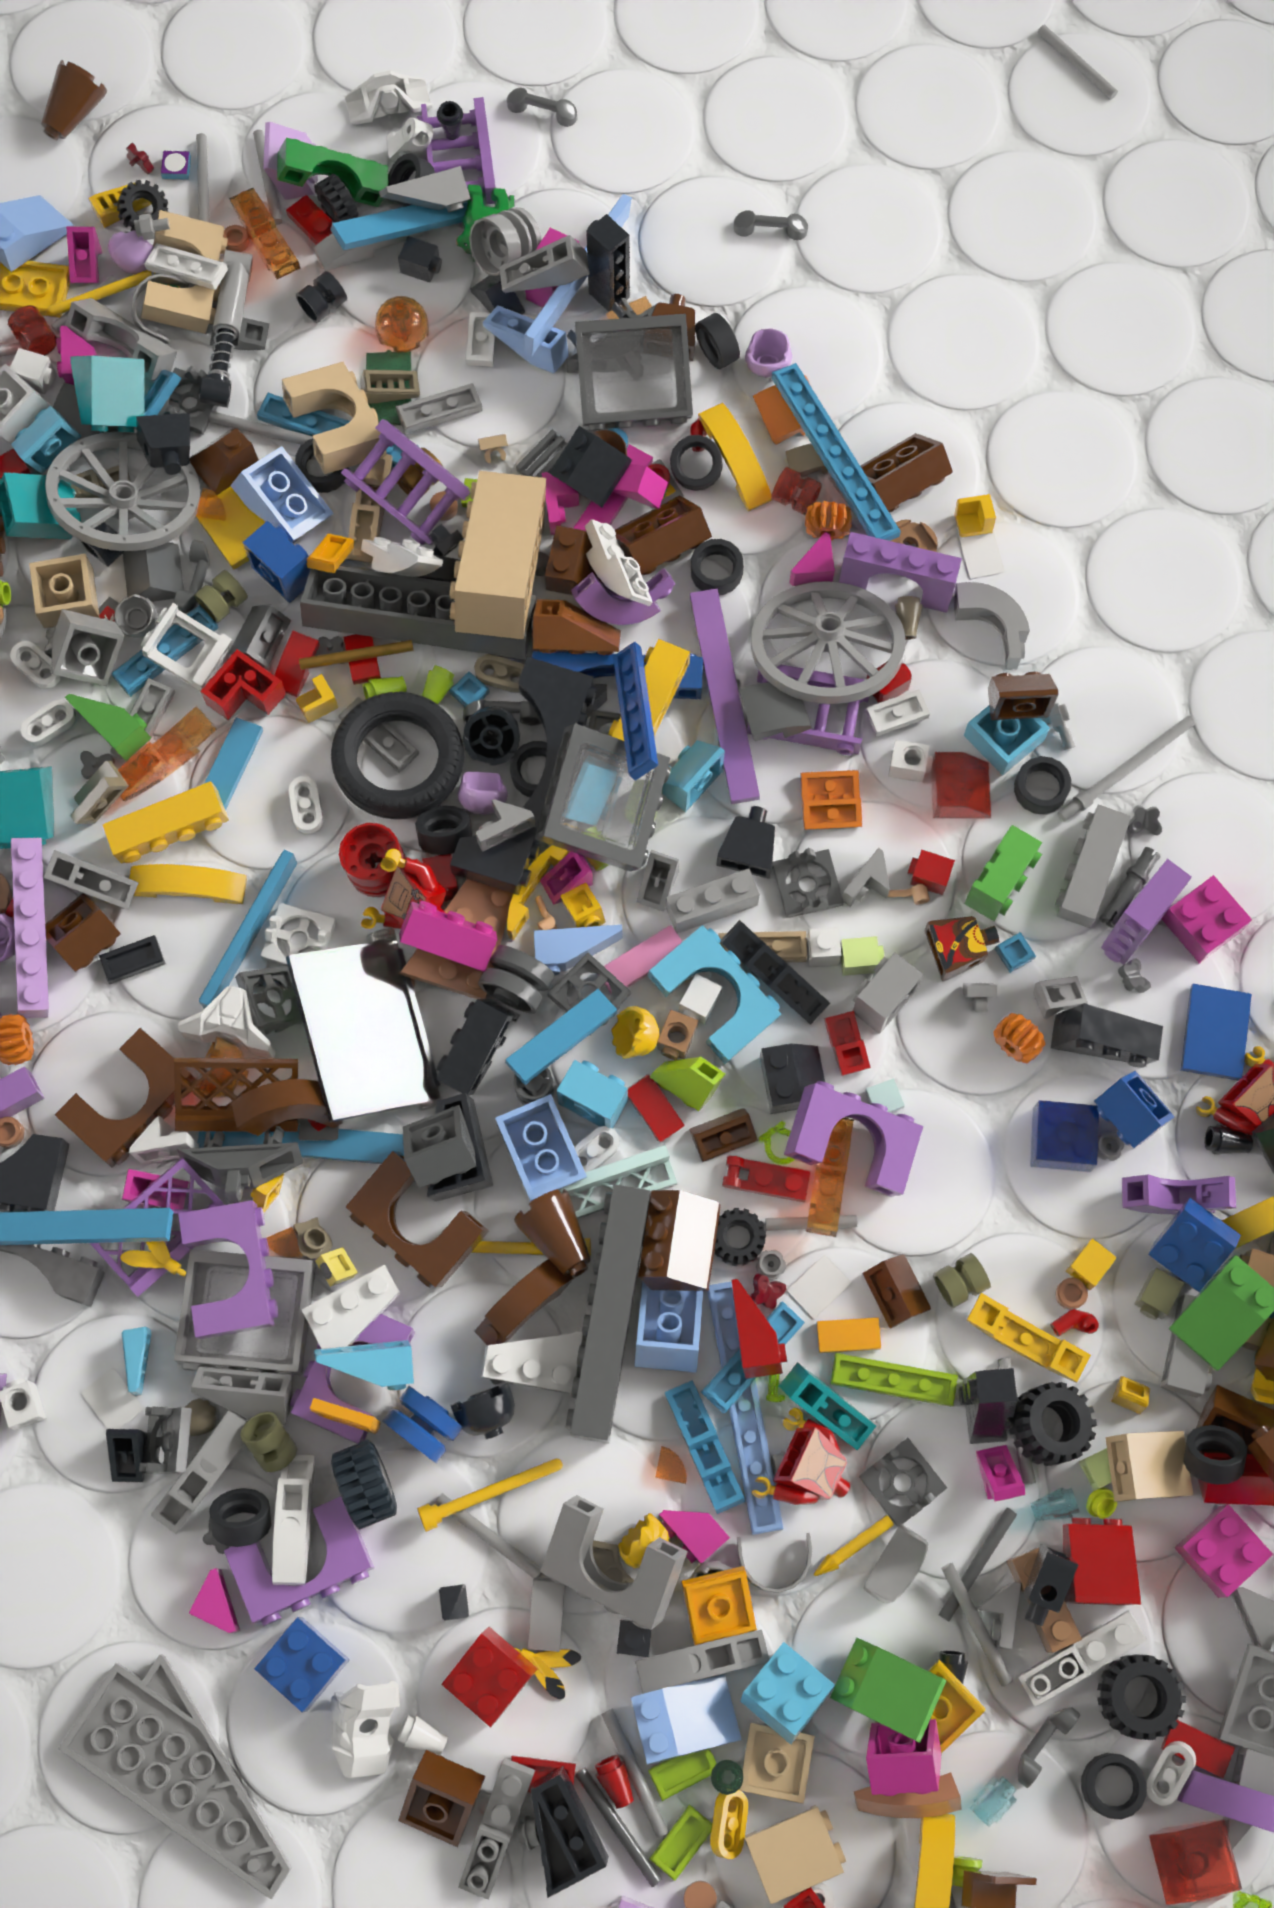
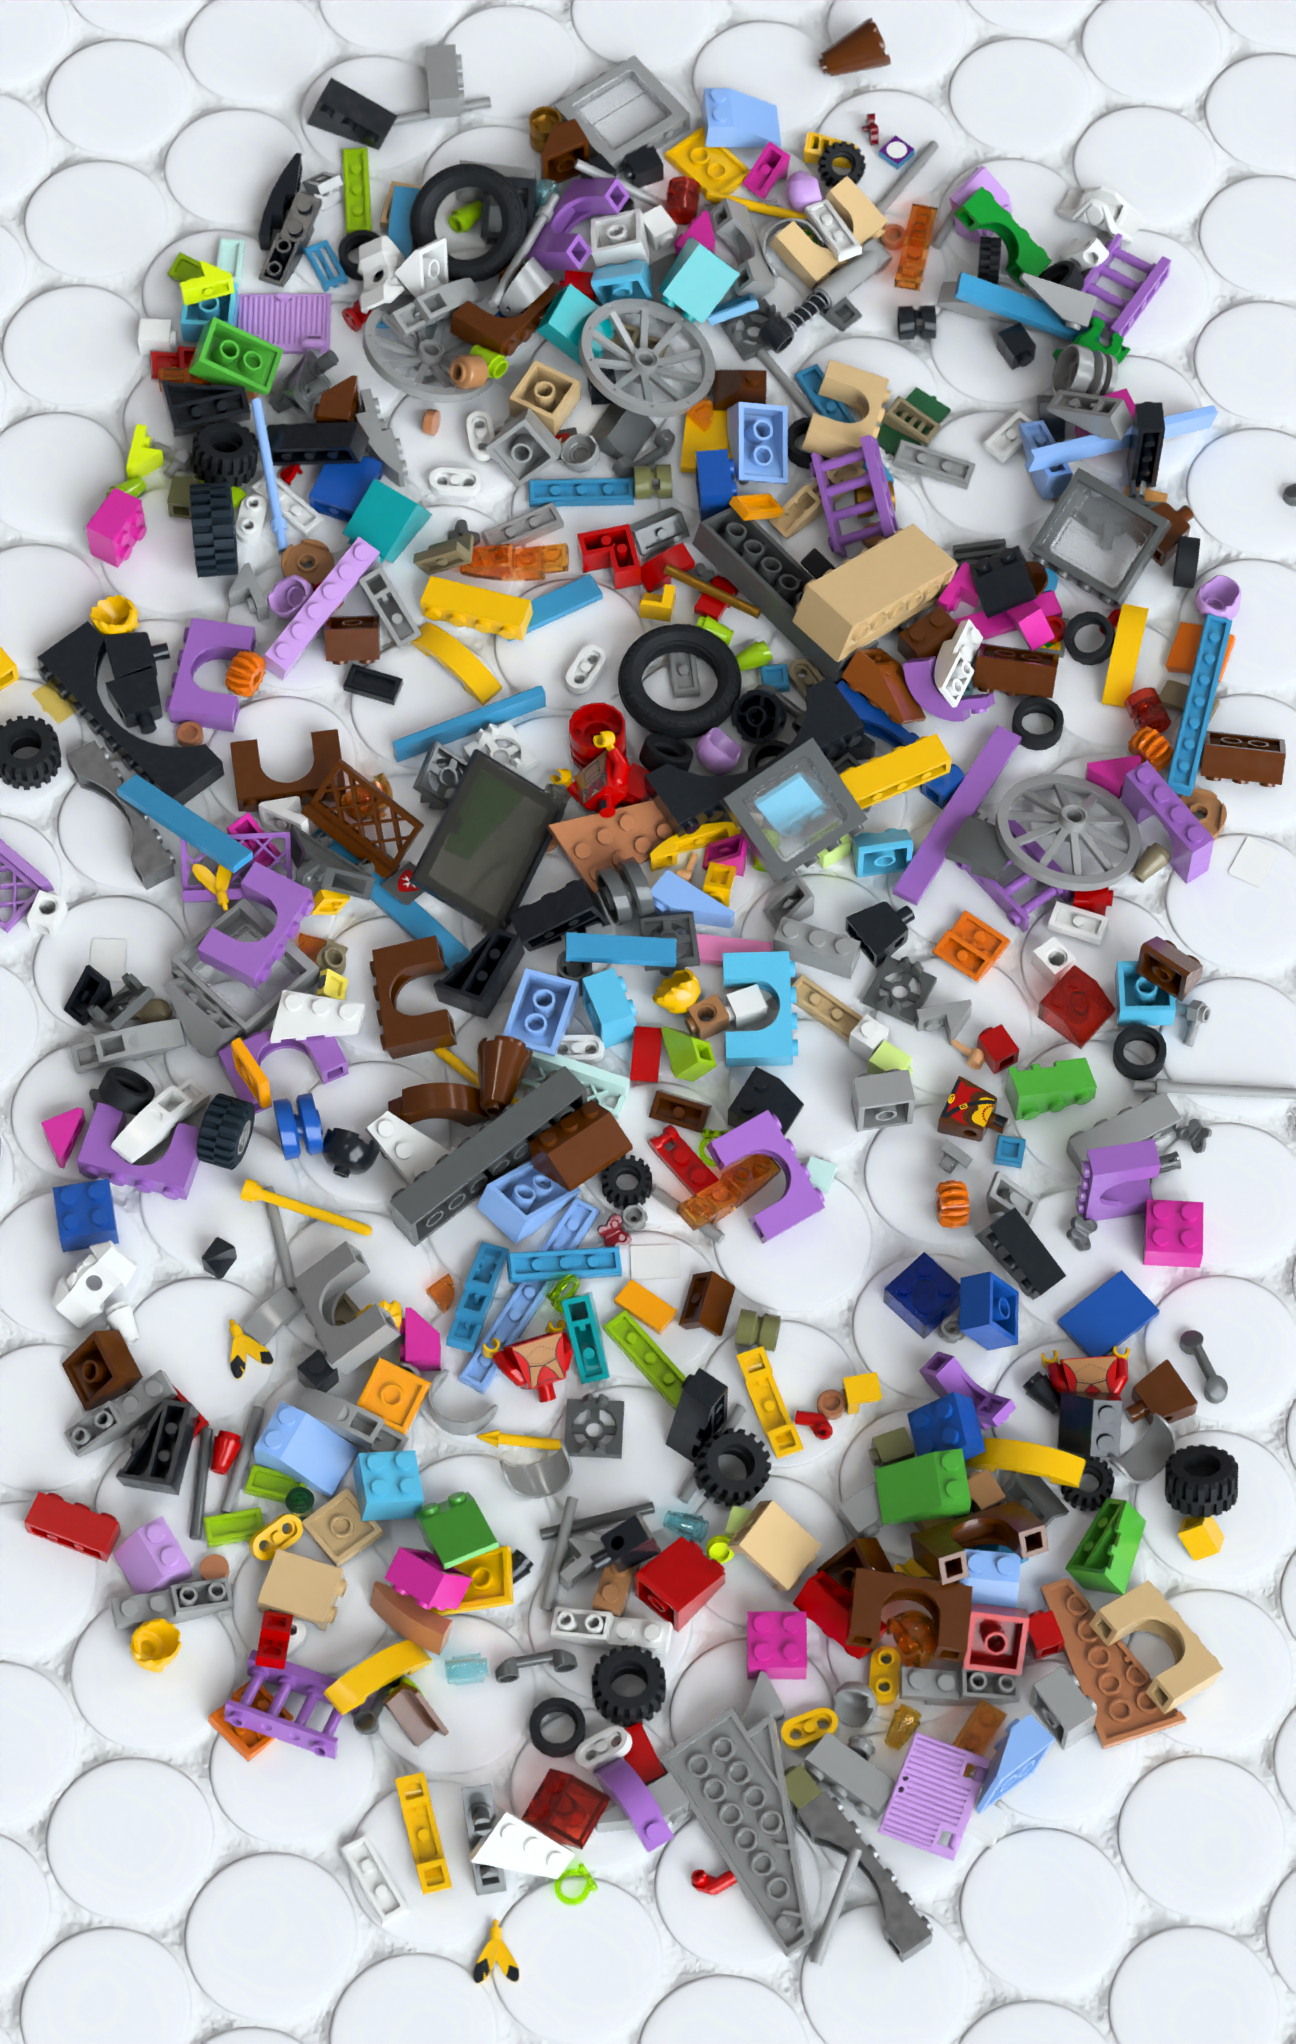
camera: 40 degrees right, 10 degrees down
(113, 723) = (498, 514): bright green slope -> none
(136, 1351) = (151, 938): medium azure slope -> none
(147, 227) = (827, 181): light grey piece -> none
(165, 440) = (709, 344): black torso -> none
(208, 659) = (612, 517): white window -> none
(229, 1019) = (401, 767): white piece -> none
(268, 1442) = (187, 1058): olive wheel -> none
(280, 1102) = (387, 842): reddish brown arch -> none
(310, 219) = (962, 258): red plate -> none
(377, 1363) = (302, 1061): medium azure slope -> none
(399, 558) = (800, 543): white slope -> none
(401, 323) = (960, 383): clear orange cylinder -> none
(438, 1147) = (467, 954): dark grey slope -> none
(444, 541) = (845, 552): black tile -> none
(448, 935) = (601, 822): dark pink brick -> none
(450, 119) = (1126, 258): black cone -> none
(489, 1676) = (200, 1318): red brick -> none
(491, 444) = (950, 517): tan tile -> none
(511, 822) = (708, 777): light grey slope -> none
(565, 110) = (1231, 314): dark grey bar -> none
(635, 711) = (869, 765): blue tile -> none
(758, 1340) = (570, 1251): red slope -> none
(775, 972) = (817, 1028): black slope -> none
(847, 1043) = (826, 1117): red slope -> none
(975, 515) = (1270, 829): yellow panel -> none
(998, 609) = (1219, 896): light grey arch -> none
(999, 1474) = (665, 1475): dark pink slope -> none
(1131, 1395) = (810, 1501): yellow slope -> none
(1213, 1470) = (825, 1569): black tyre -> none

